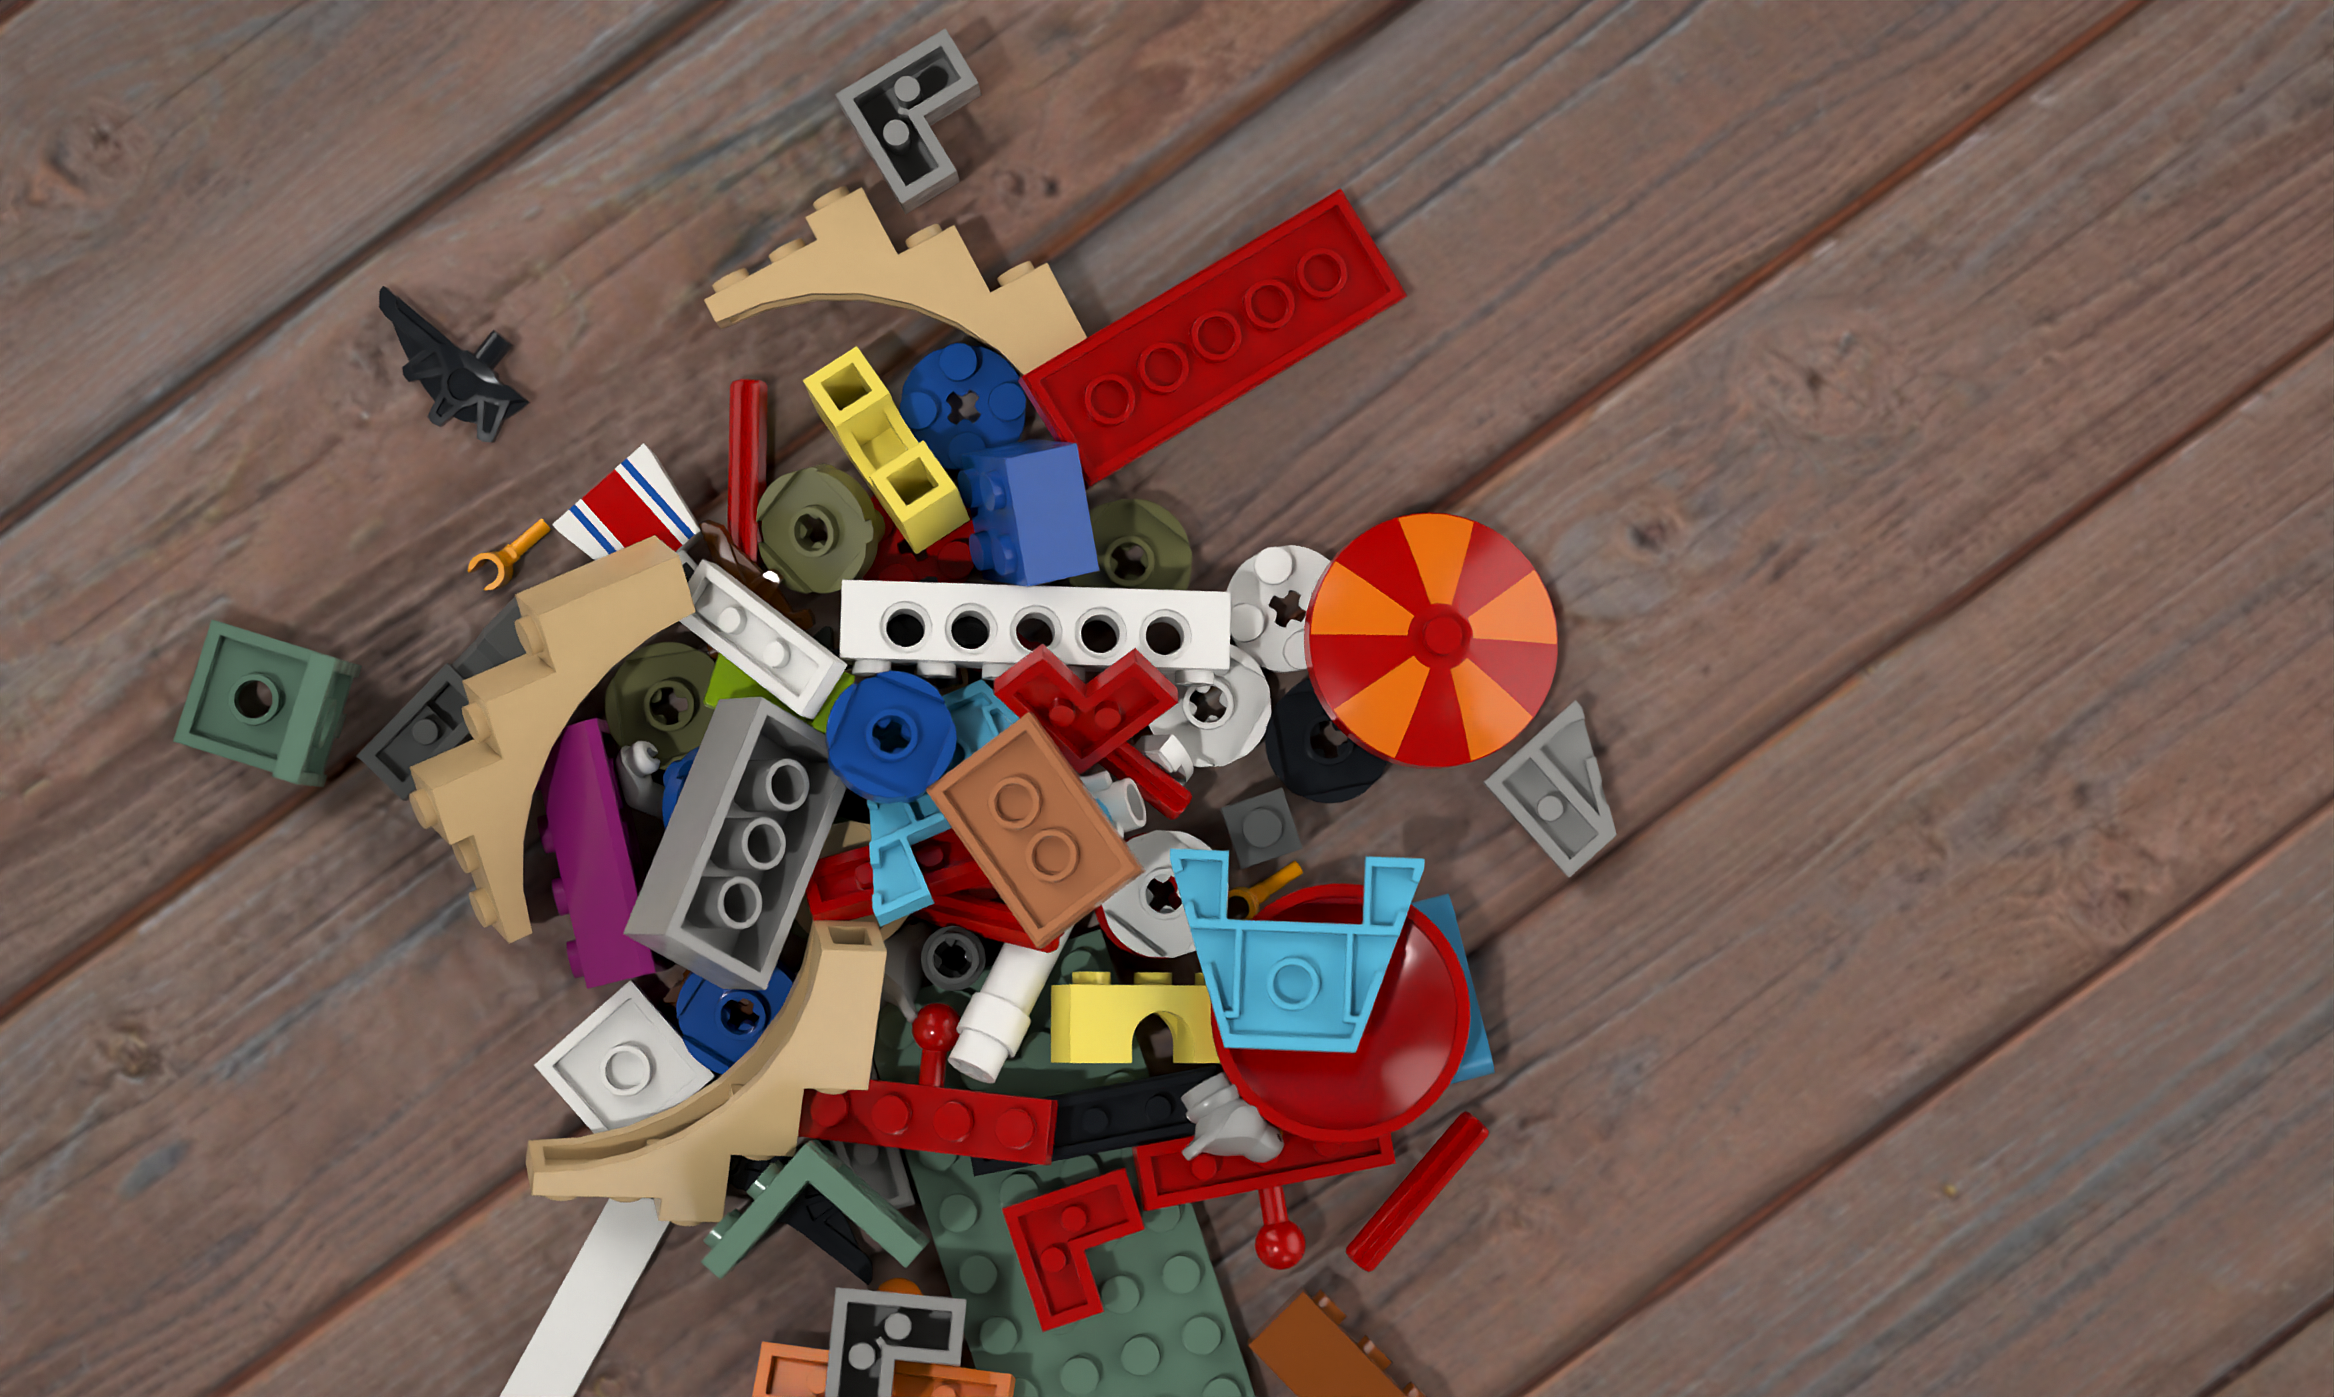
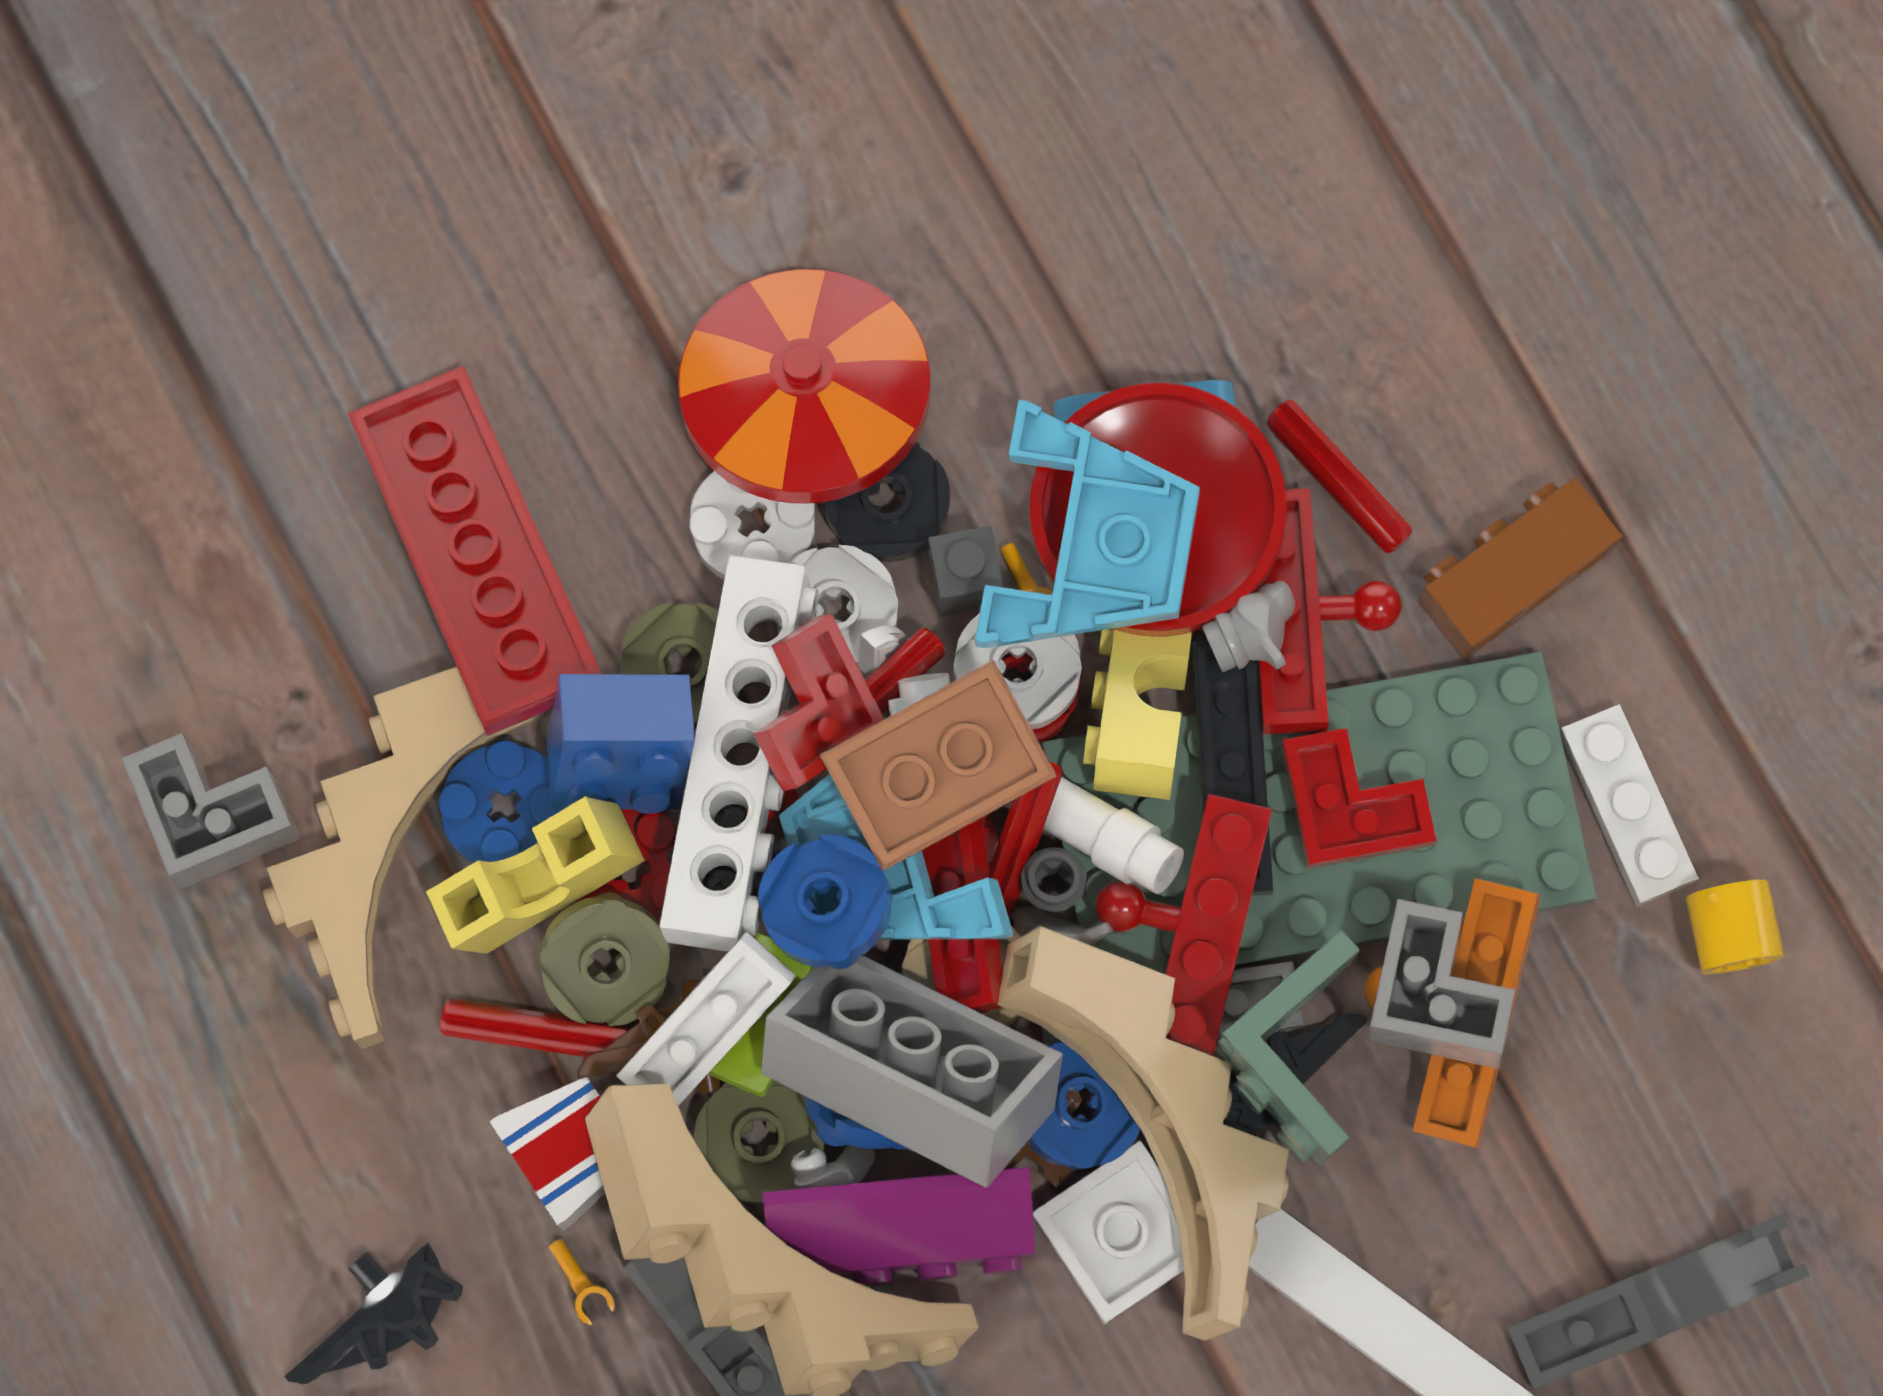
camera: 85 degrees left, 10 degrees down
(1557, 792) = (969, 291): light grey wing -> none

